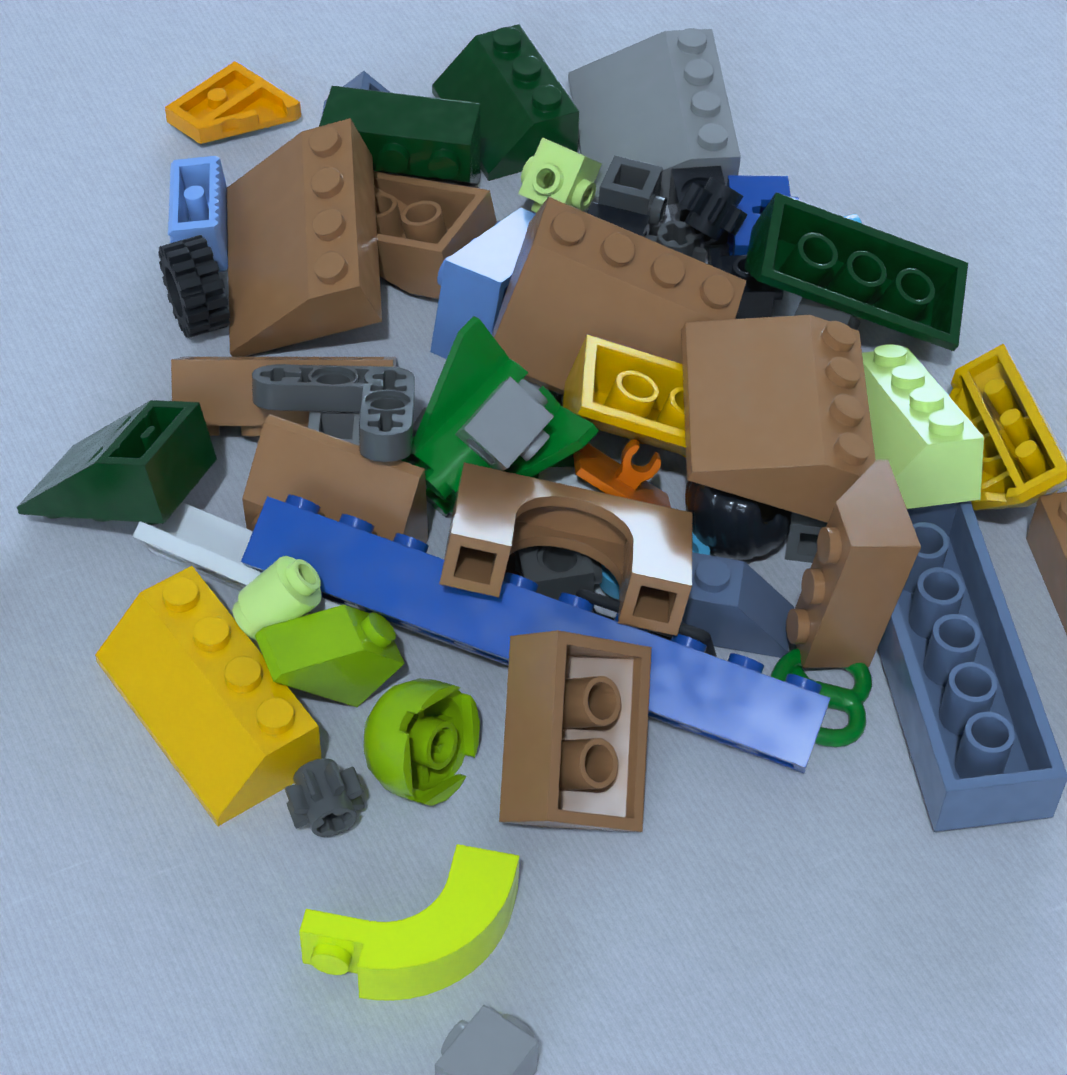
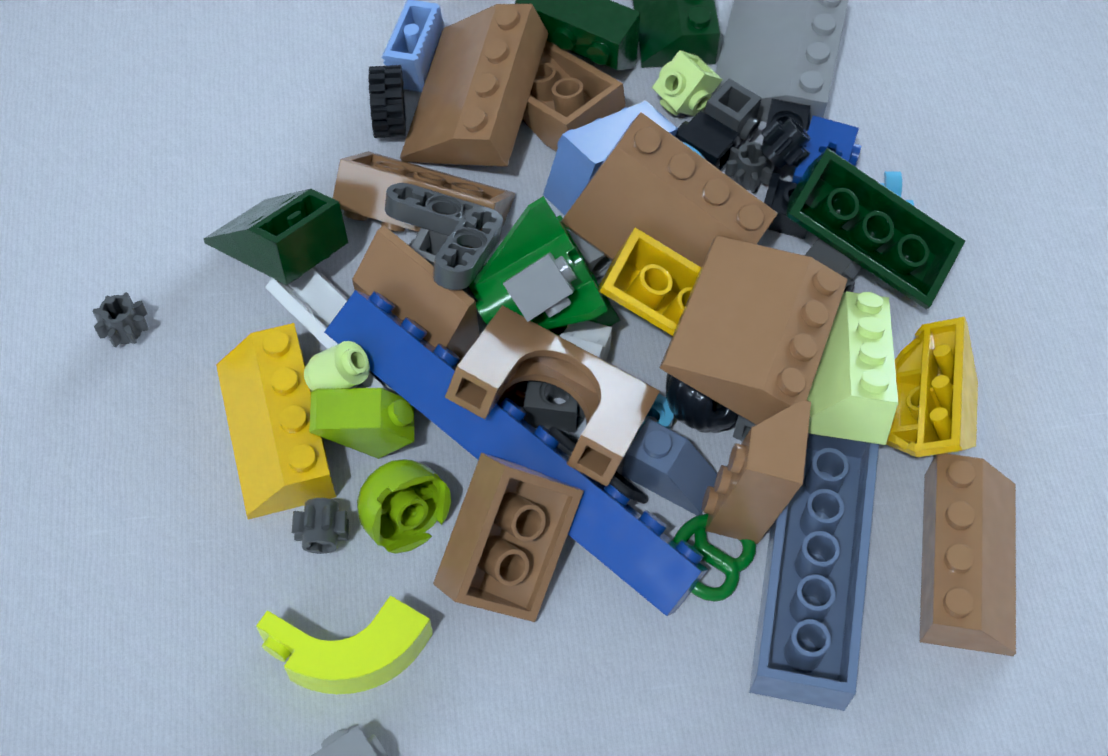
camera: 20 degrees right, 10 degrees up
(620, 479) = (624, 345): orange piece -> none

